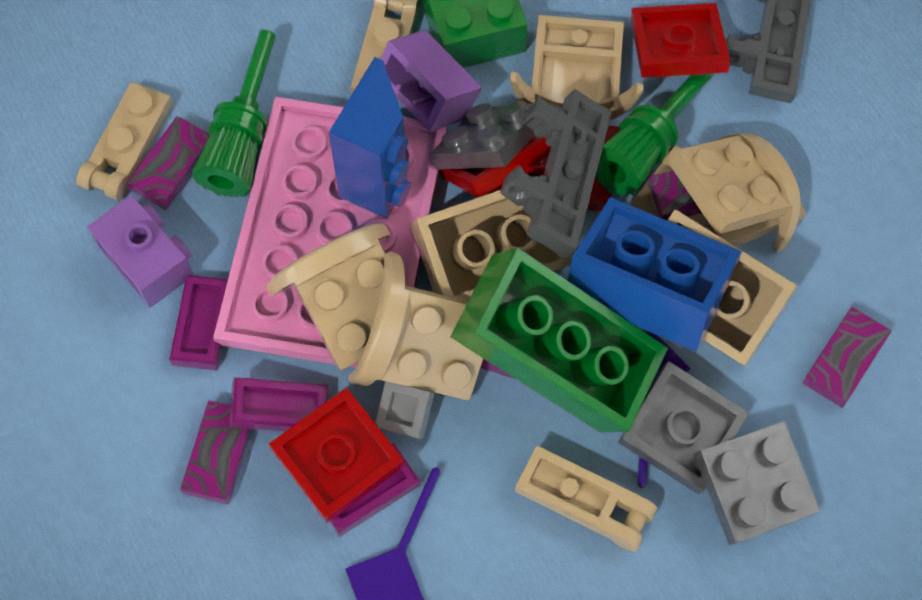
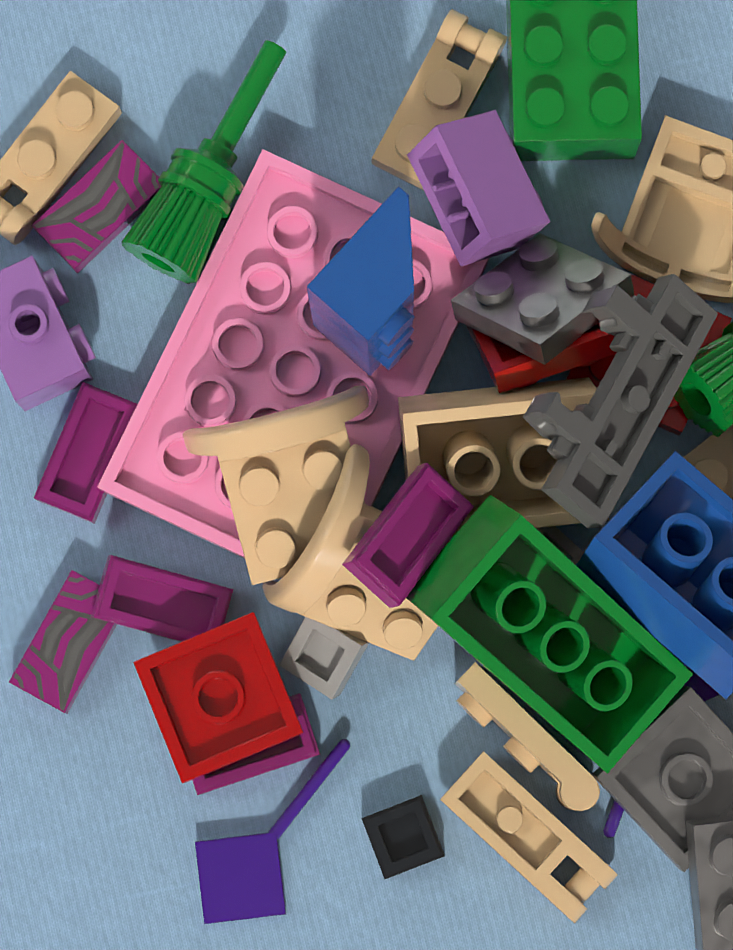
camera: 20 degrees right, 15 degrees up
(442, 296) = (408, 535): none -> magenta tile
(495, 525) = (403, 837): none -> black tile
(566, 429) = (528, 739): none -> tan plate

